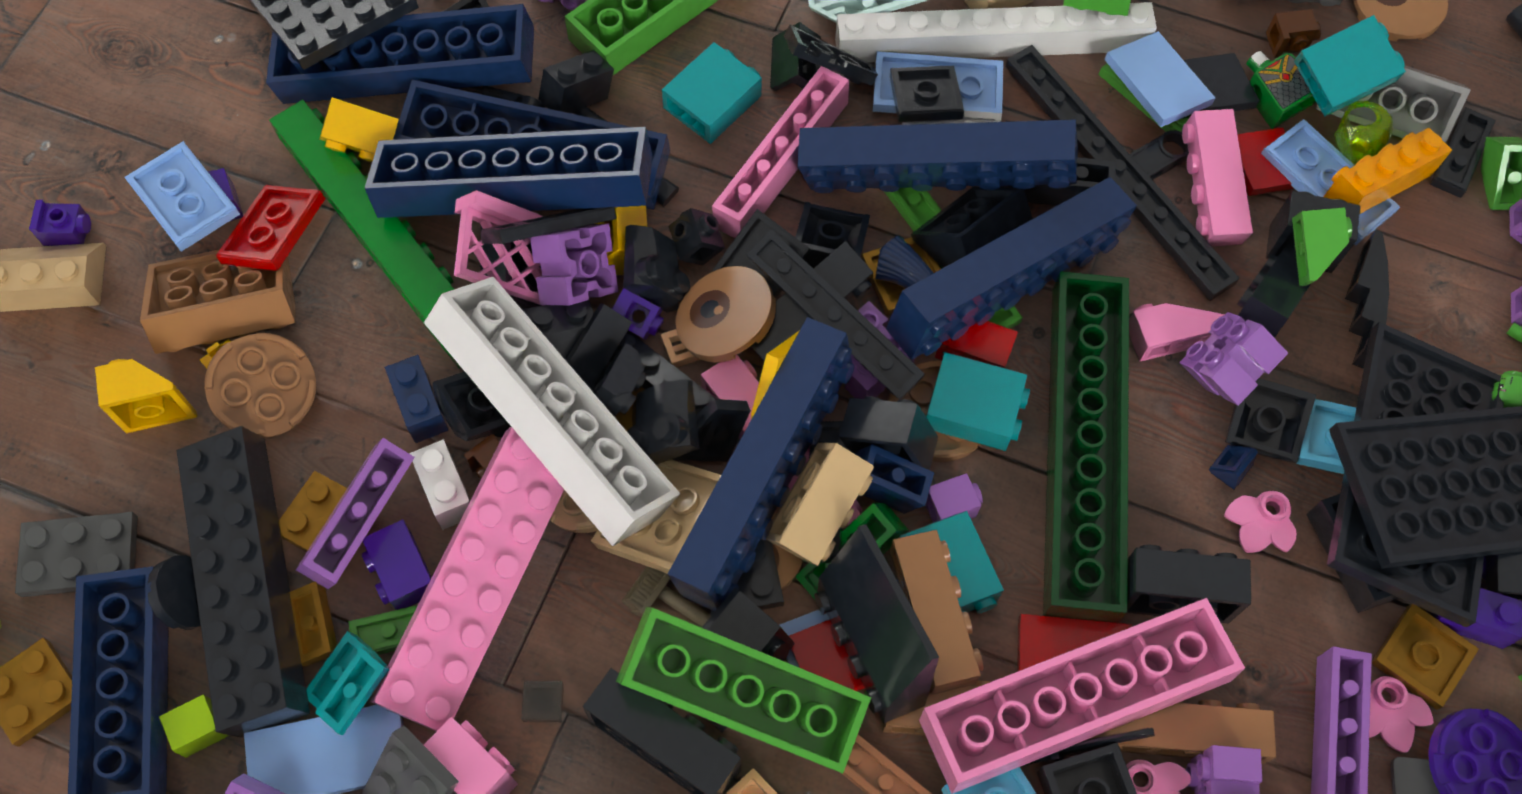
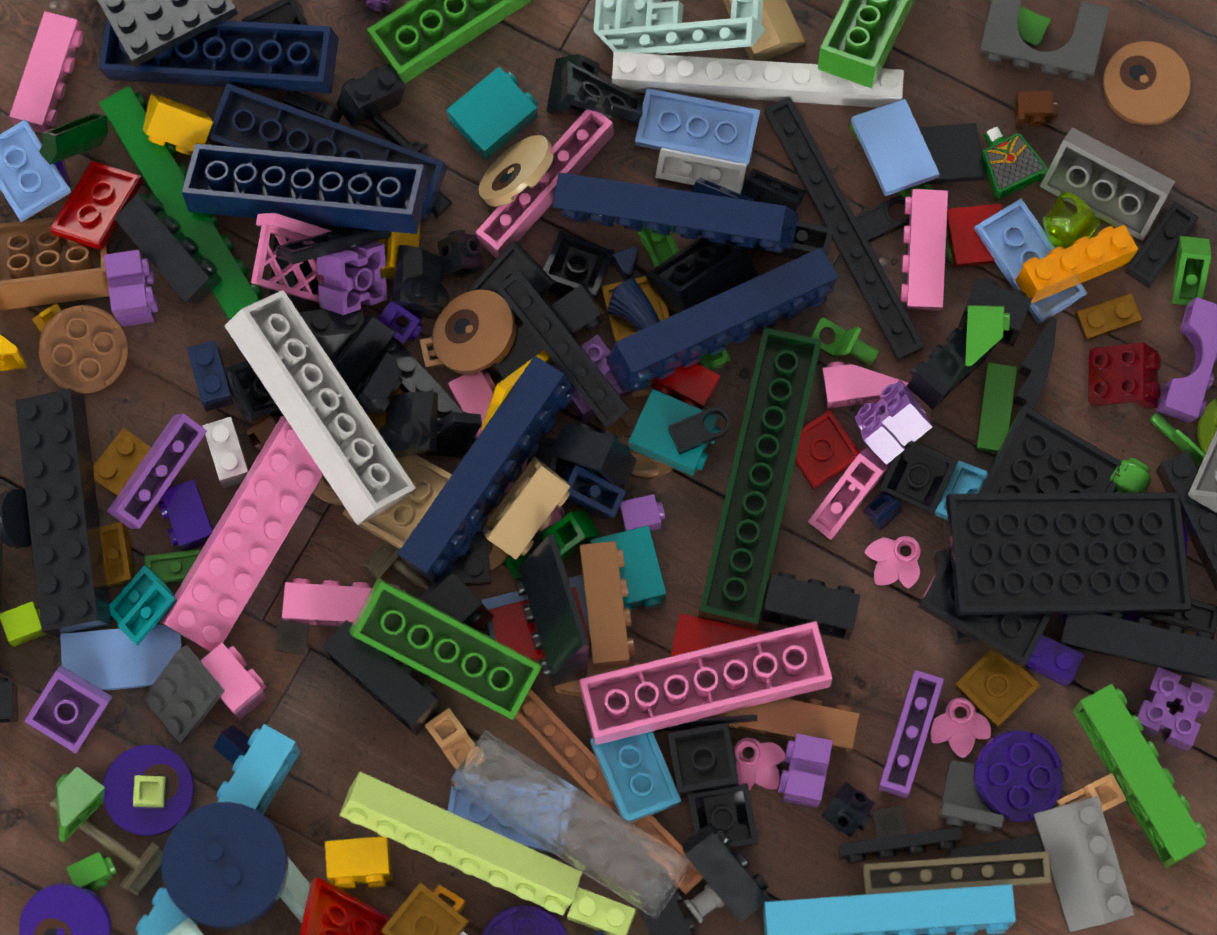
camera: 10 degrees right, 10 degrees up
(211, 98) = (46, 72): none -> bright pink brick
(240, 157) = (74, 137): none -> dark green piece
(313, 308) = (130, 288): none -> medium lavender brick
(356, 260) = (168, 248): none -> black brick
(577, 653) = (324, 603): none -> bright pink brick
(749, 140) = (515, 170): none -> tan tile
(883, 225) = (626, 261): none -> dark blue slope
(926, 94) = (681, 140): black tile -> none
(1003, 394) = (691, 431): none -> black piece
(1151, 284) = (845, 342): none -> bright green bracket
(1154, 406) = (824, 450): none -> red tile
(1192, 449) = (848, 493): none -> bright pink slope
(1333, 339) = (996, 406): none -> bright green tile
(1350, 65) = (1062, 160): teal brick -> none
(1429, 230) = (1108, 317): none -> pearl gold plate
(1466, 286) = (1124, 375): none -> dark red bracket

